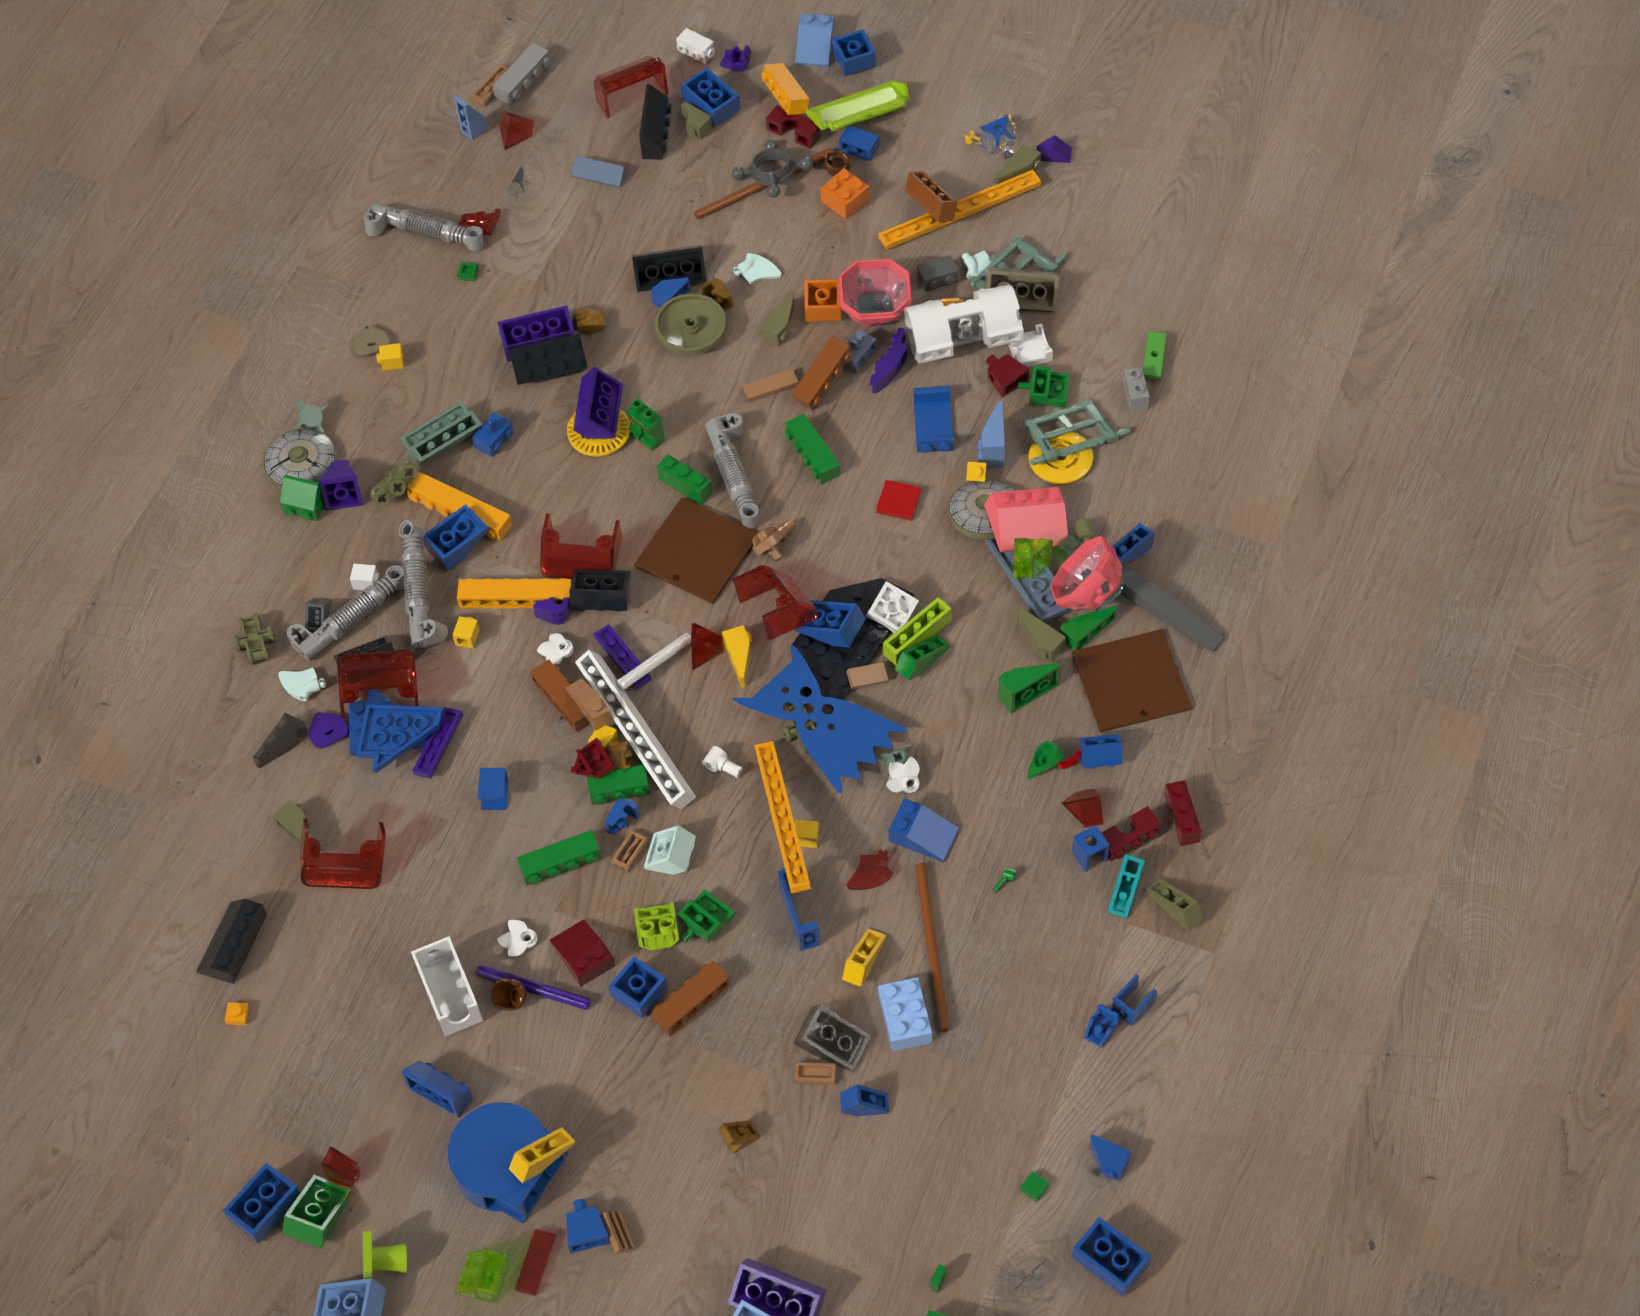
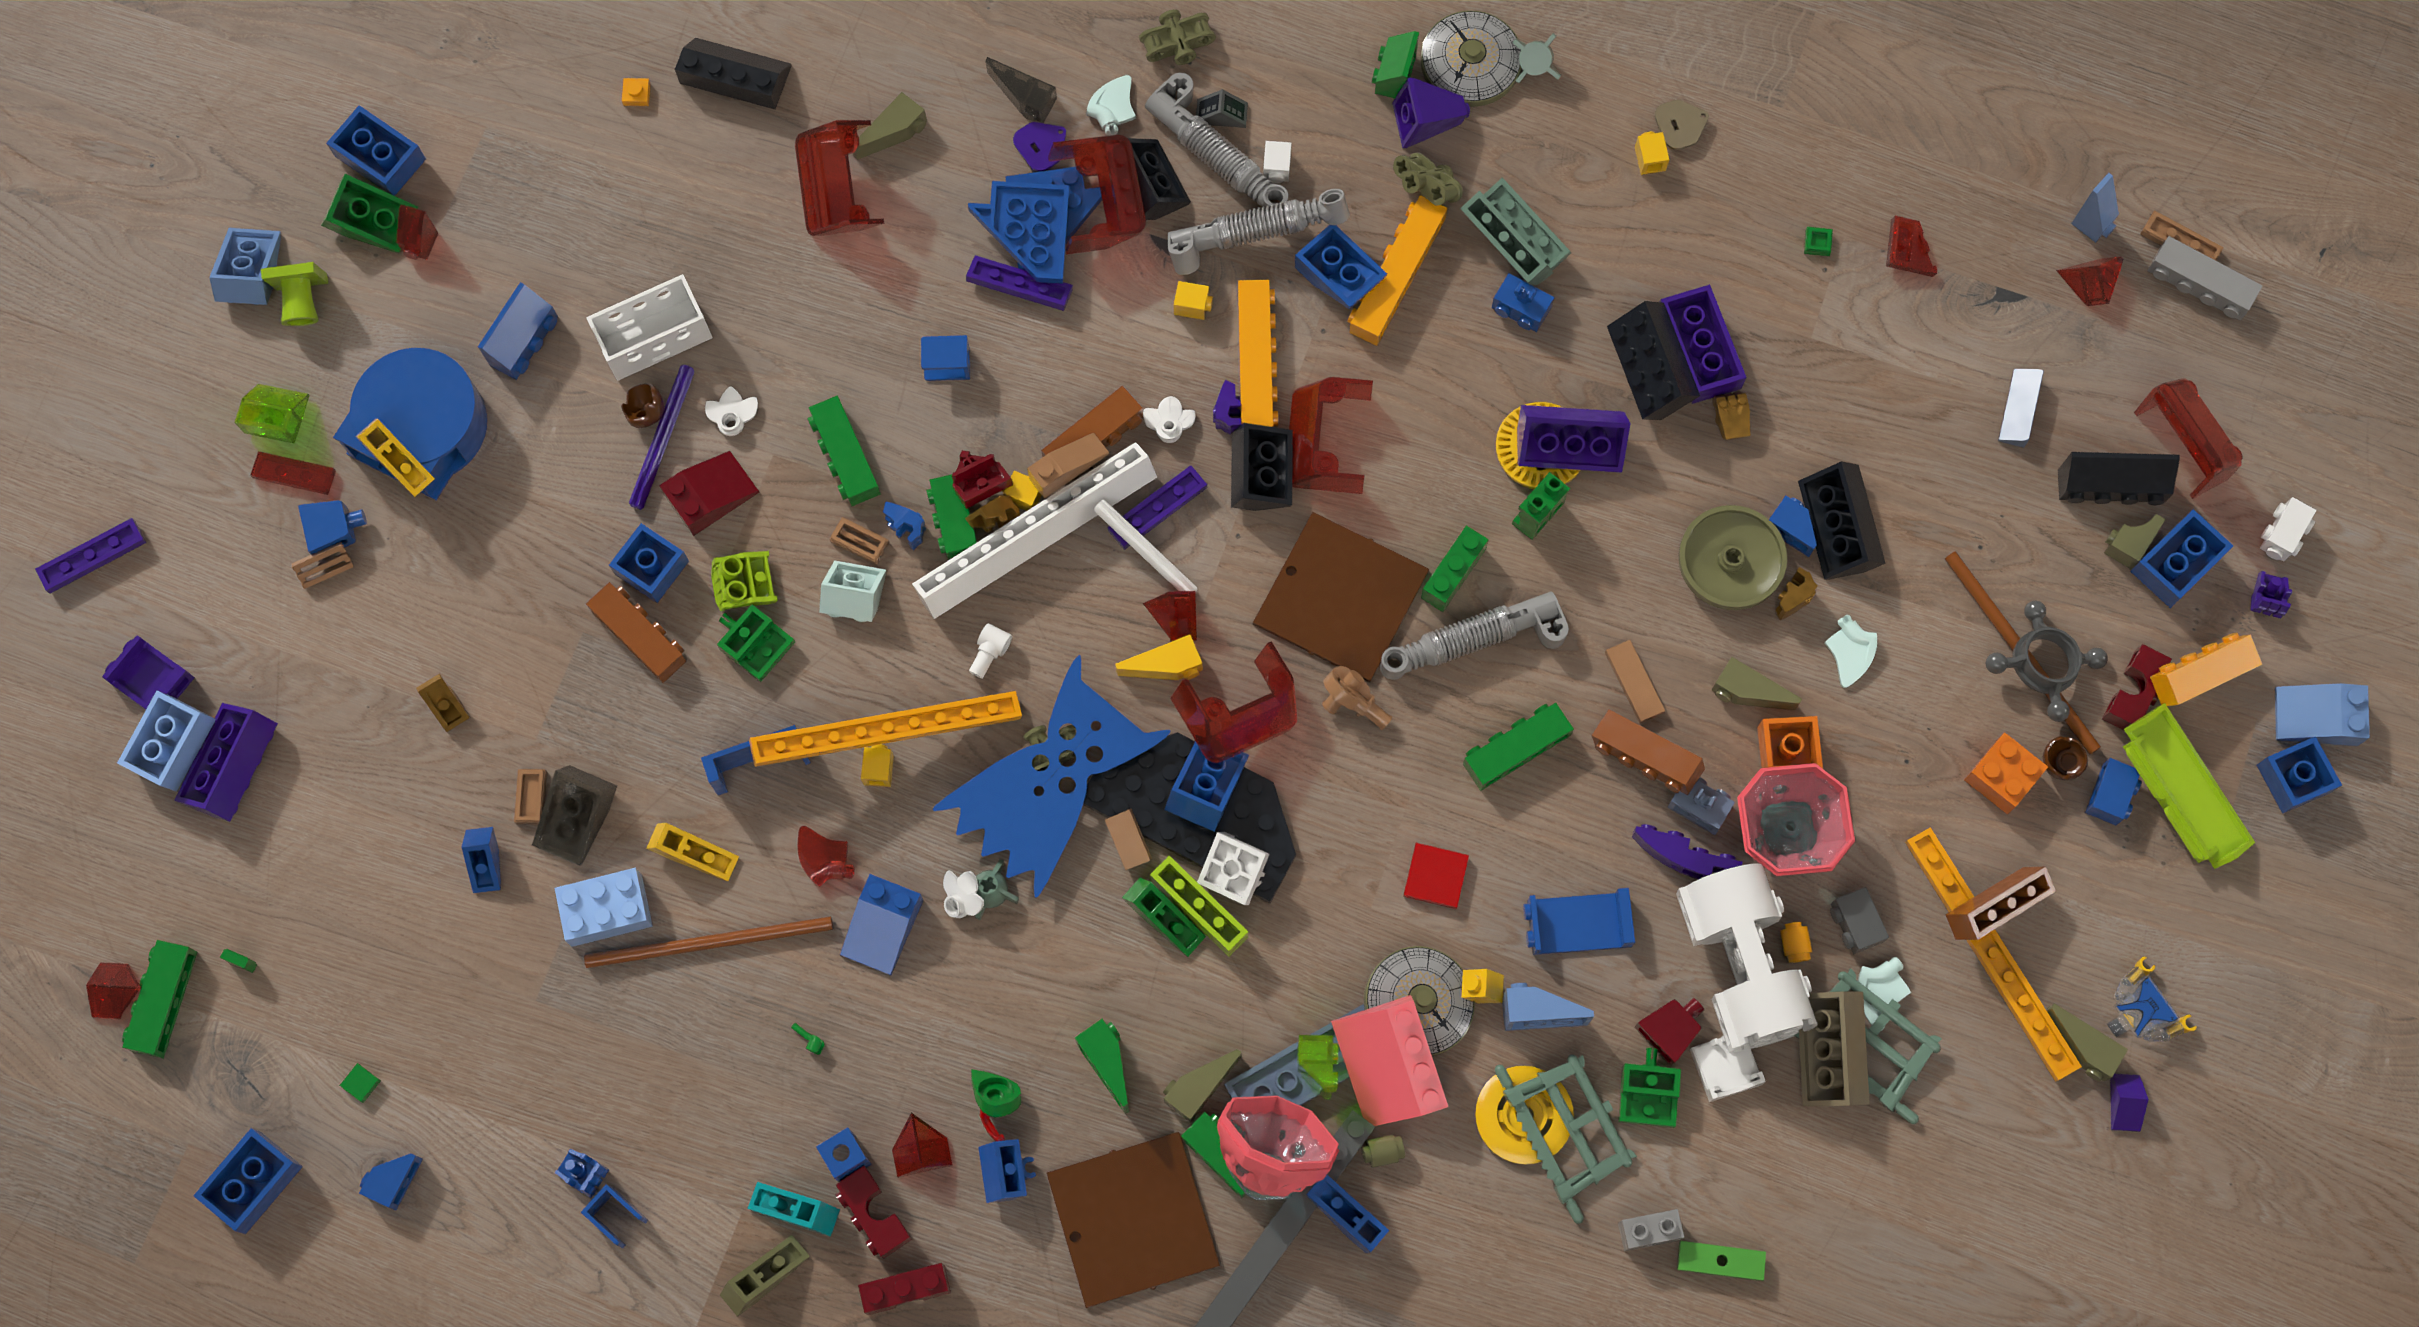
camera: 85 degrees right, 15 degrees up
(380, 216) = (1894, 164): light grey piece -> none

